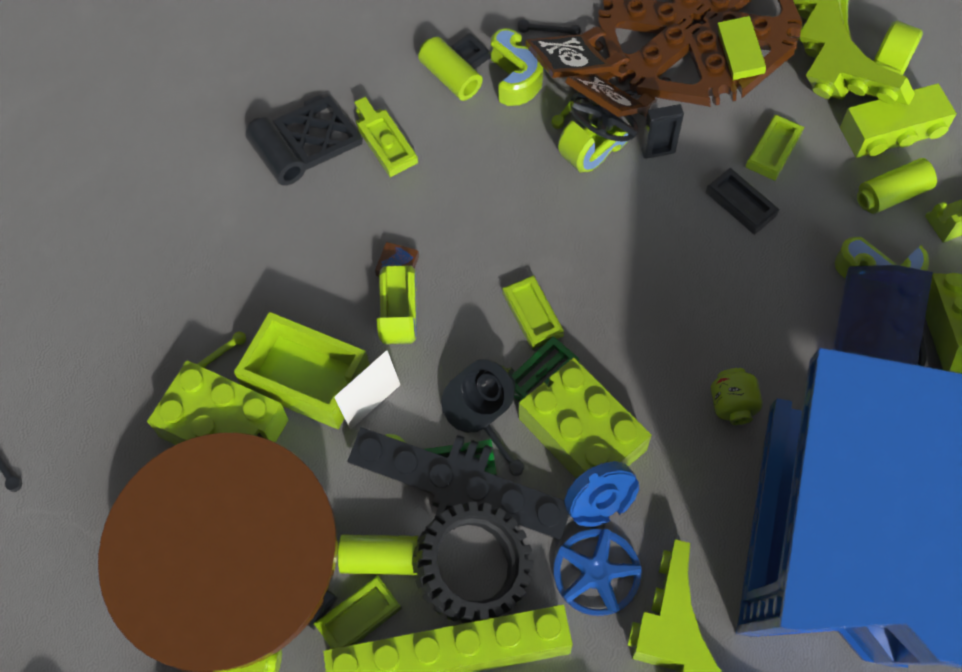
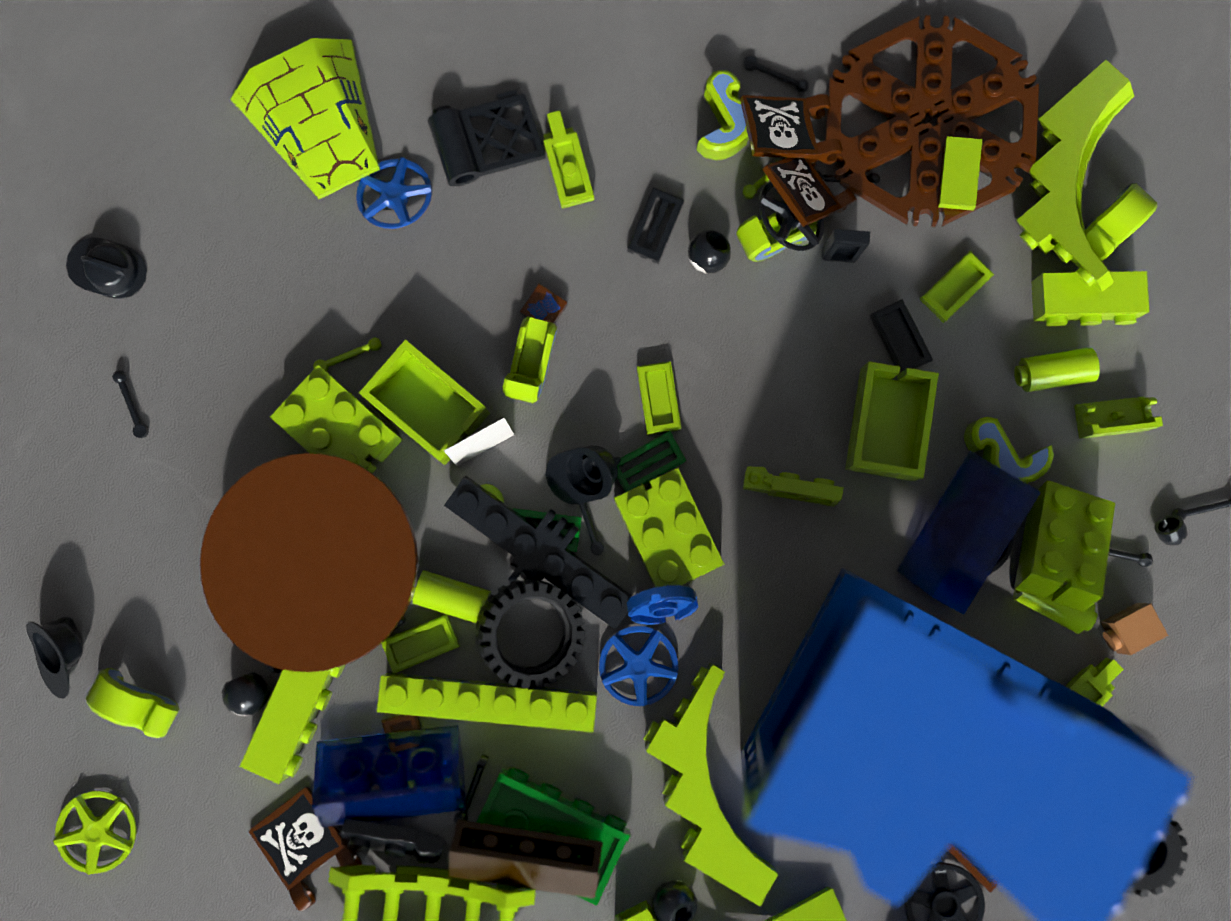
camera: 10 degrees right, 20 degrees up
(133, 157) = (313, 113): none -> lime wedge
(228, 204) = (394, 193): none -> blue wheel
(450, 68) = (656, 97): lime brick -> none
(471, 51) = (682, 81): black tile -> none
(479, 191) = (645, 251): none -> black tile
(538, 173) = (709, 251): none -> black piece
(693, 353) = (791, 487): none -> lime hinge
(736, 396) = (817, 544): lime head -> none
(764, 269) = (892, 421): none -> lime piece

